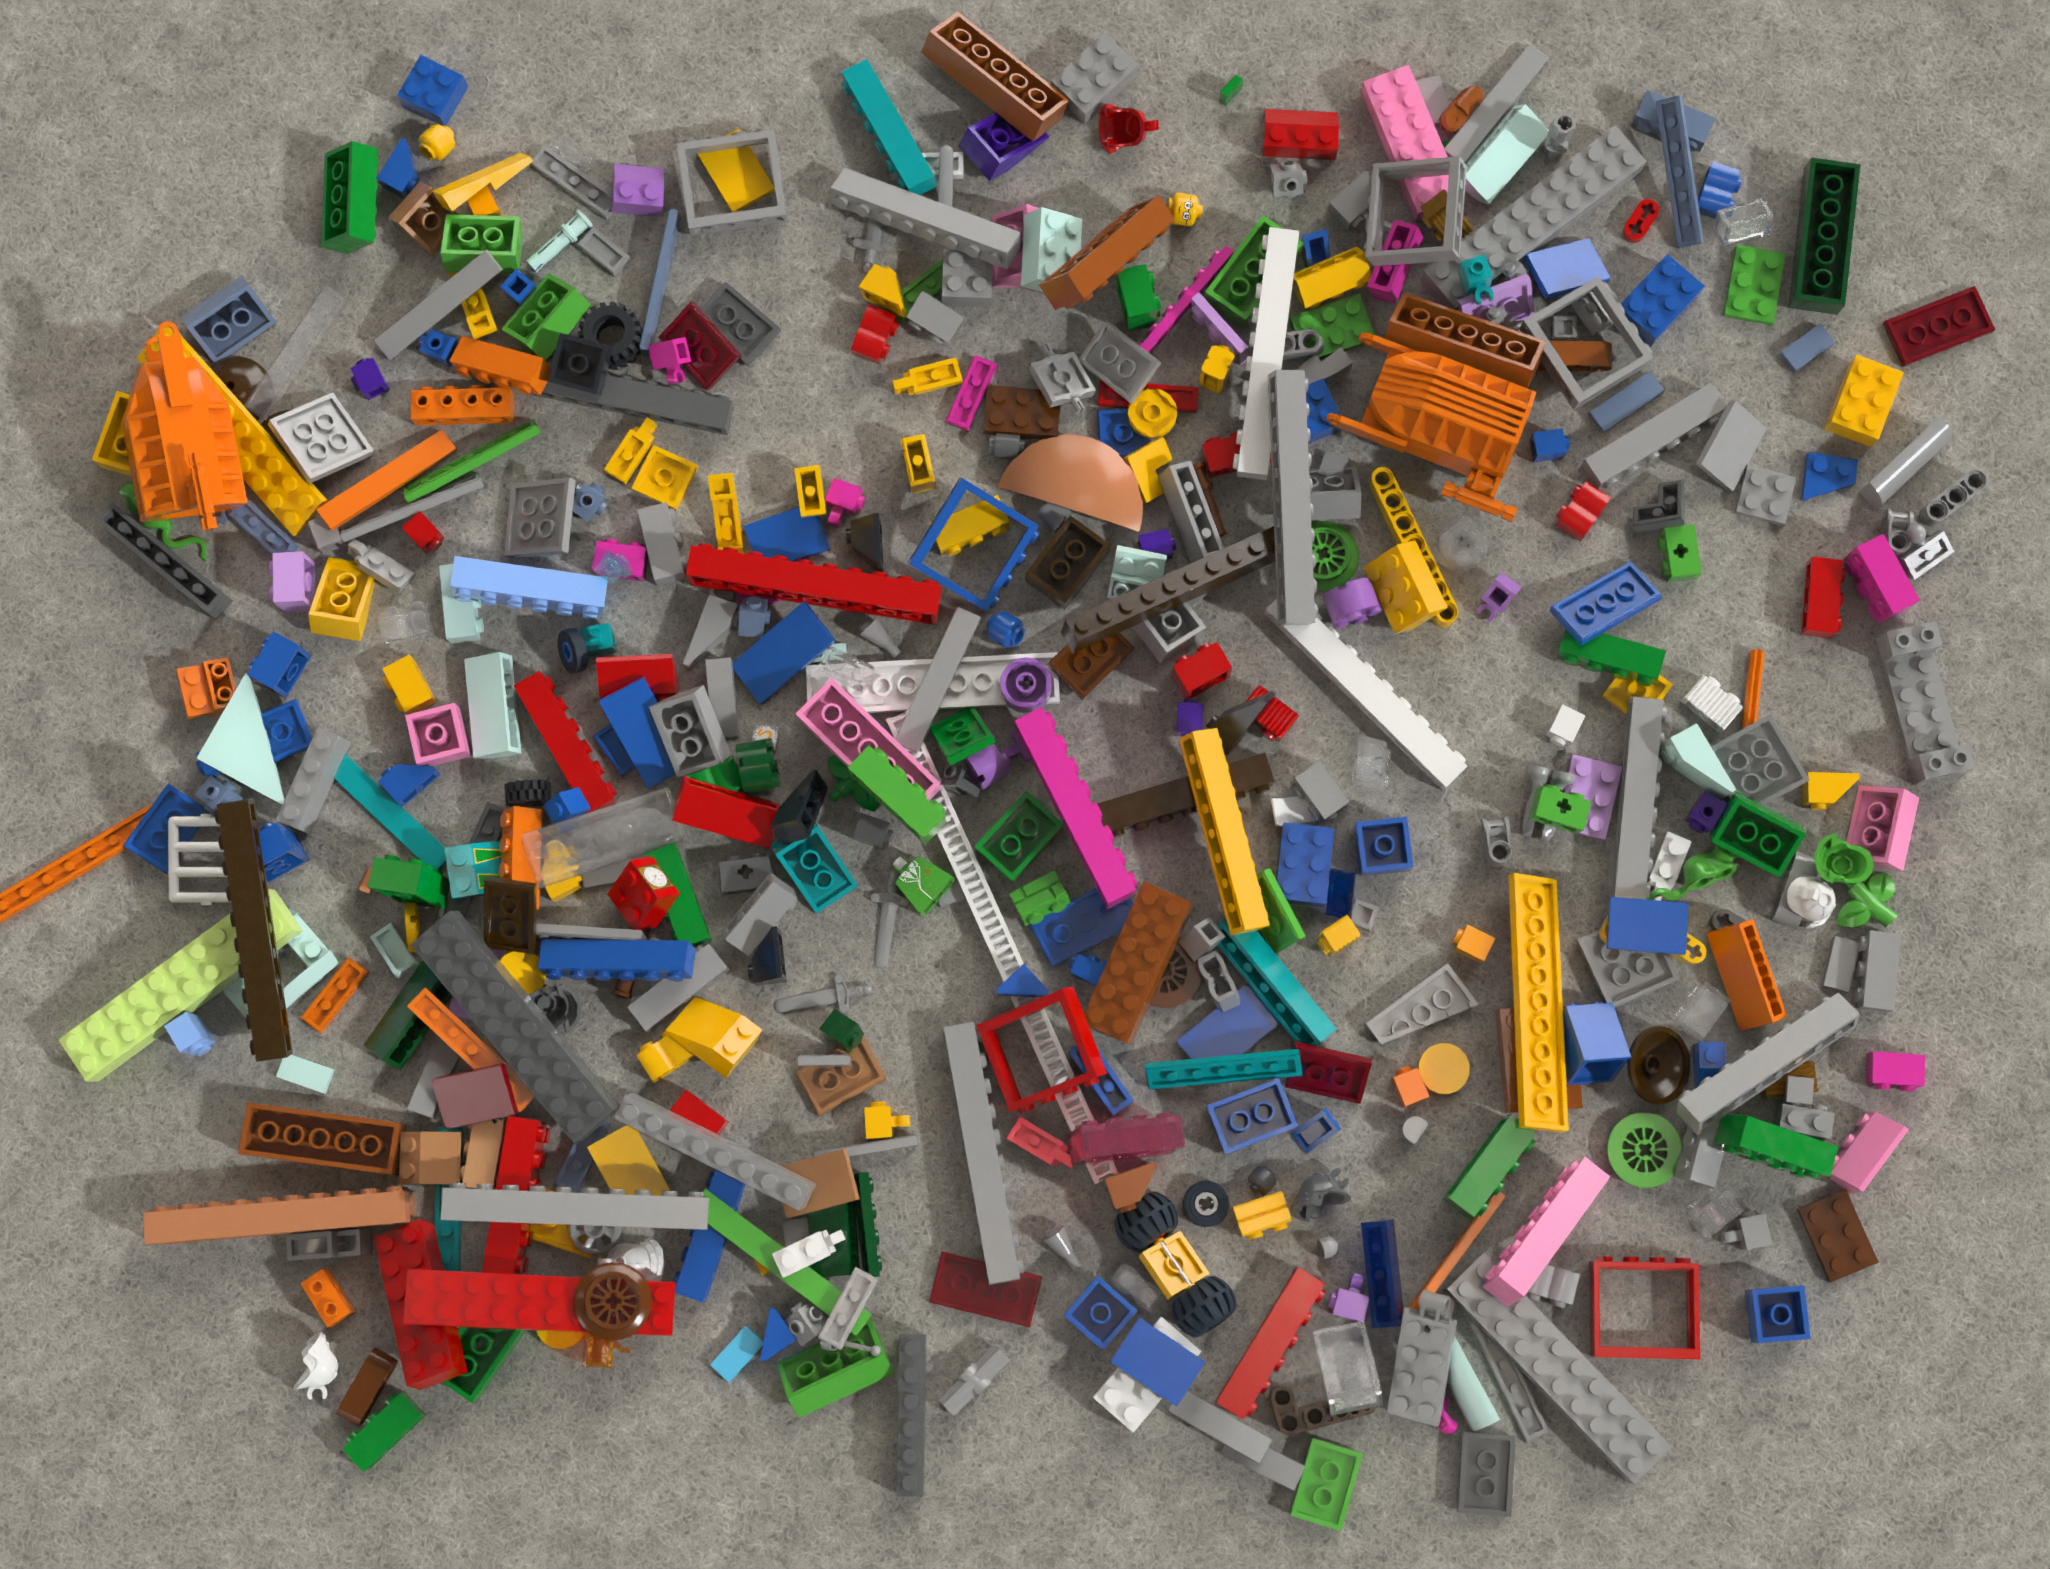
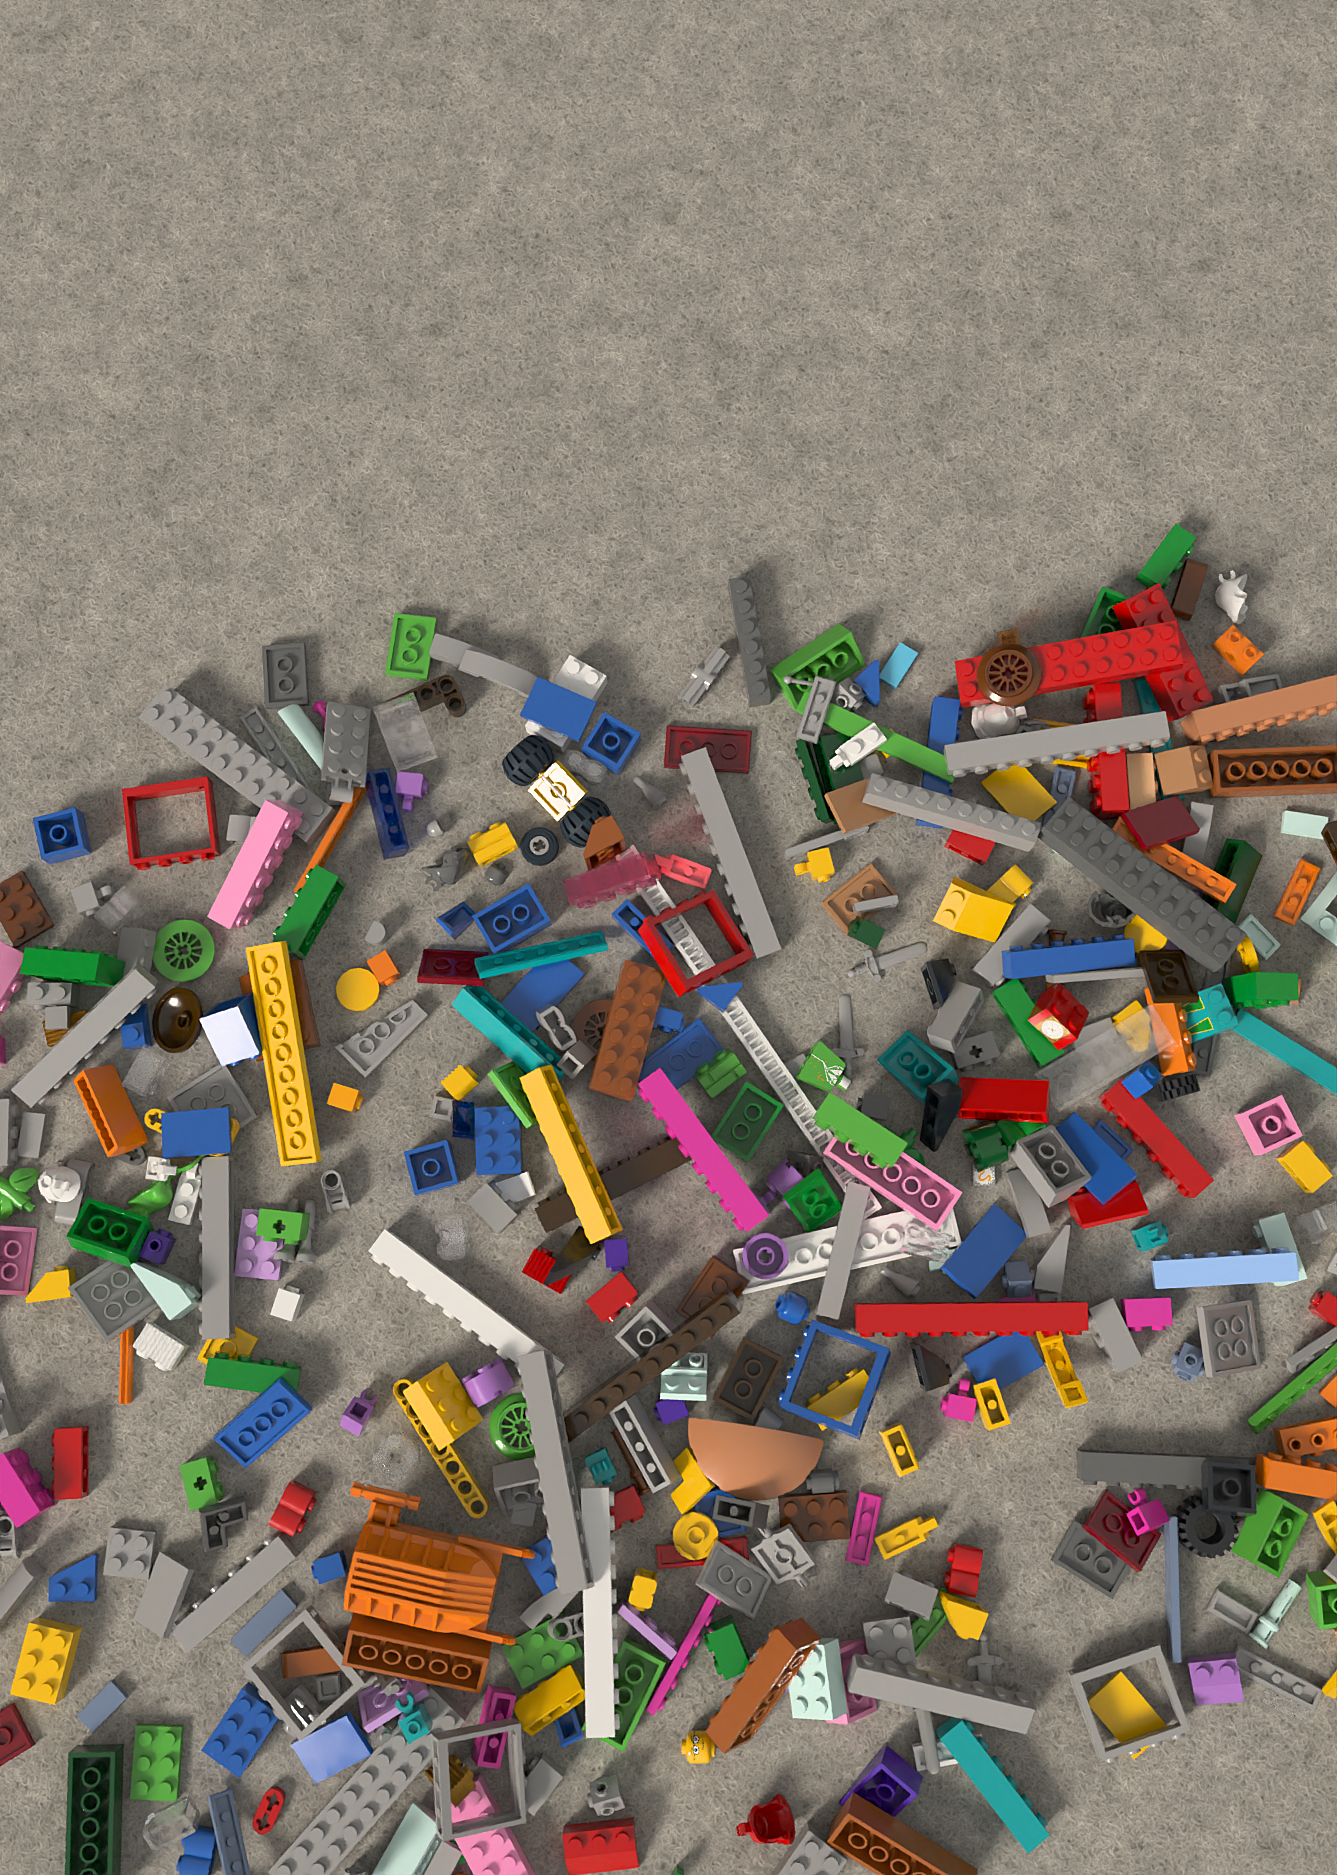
camera: 170 degrees right, 0 degrees up
(406, 781) = (1284, 1081): blue slope -> none
(492, 705) = (1227, 1161): light aqua brick -> none
(517, 287) = (1303, 1558): blue brick -> none
(572, 650) = (1169, 1221): black bush -> none
(613, 567) = (1153, 1299): clear light blue bracket -> none
(631, 451) = (1160, 1417): yellow hinge -> none
(665, 477) = (1124, 1398): yellow tile -> none
(1100, 425) = (740, 1512): none -> dark grey brick
(1242, 499) = (601, 1466): none -> teal brick
(1270, 1342) = (471, 745): brick -> none
(1695, 894) = (159, 1169): none -> white hinge
(1842, 861) = (34, 1220): bright green helmet -> none

